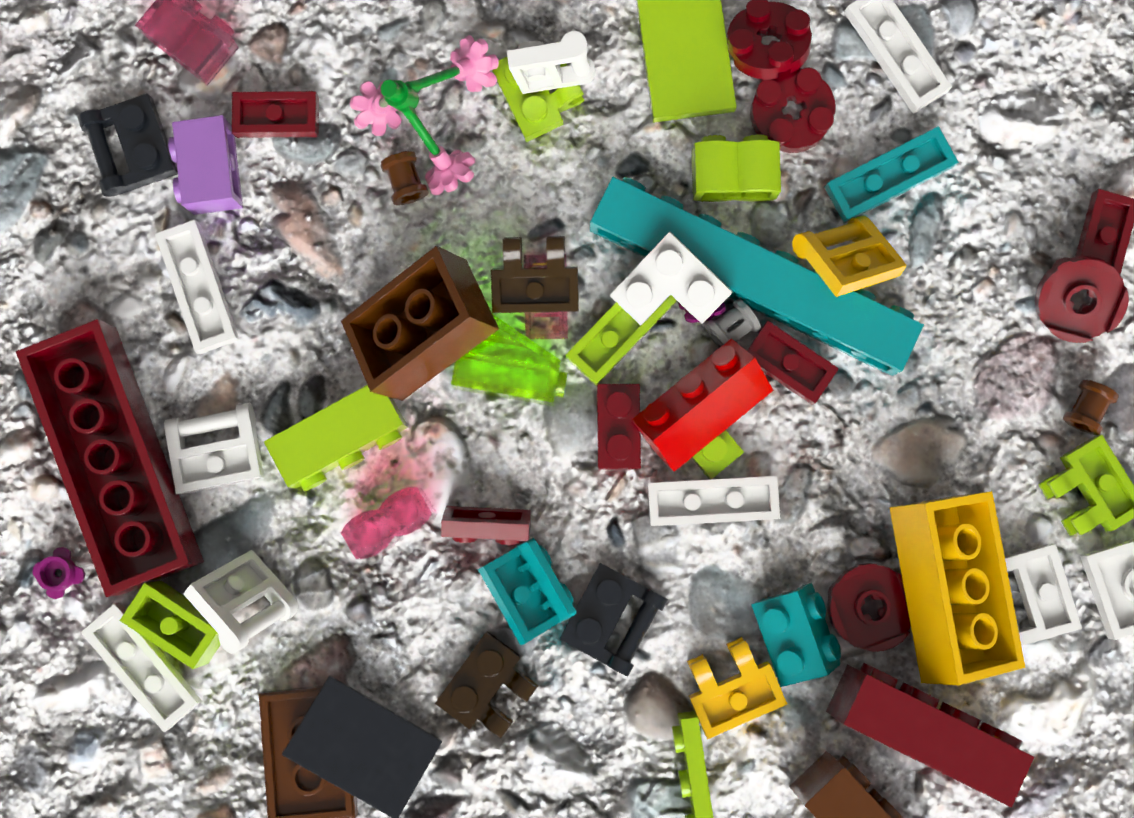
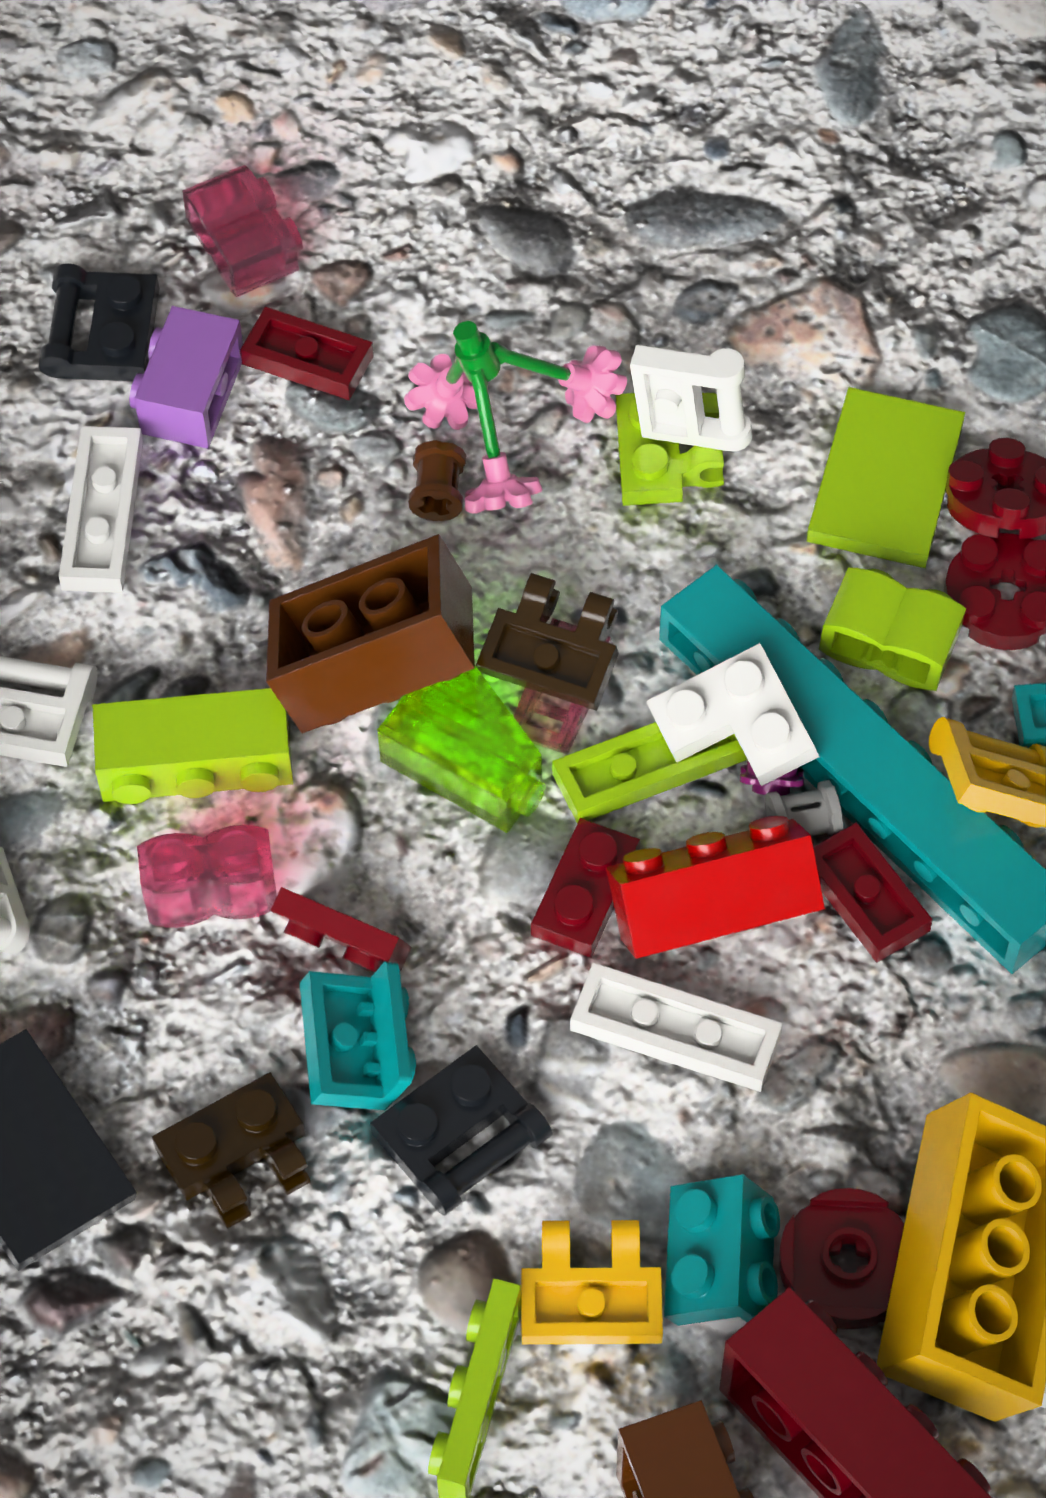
camera: 20 degrees right, 25 degrees down
(717, 455) = (710, 968): lime plate -> none

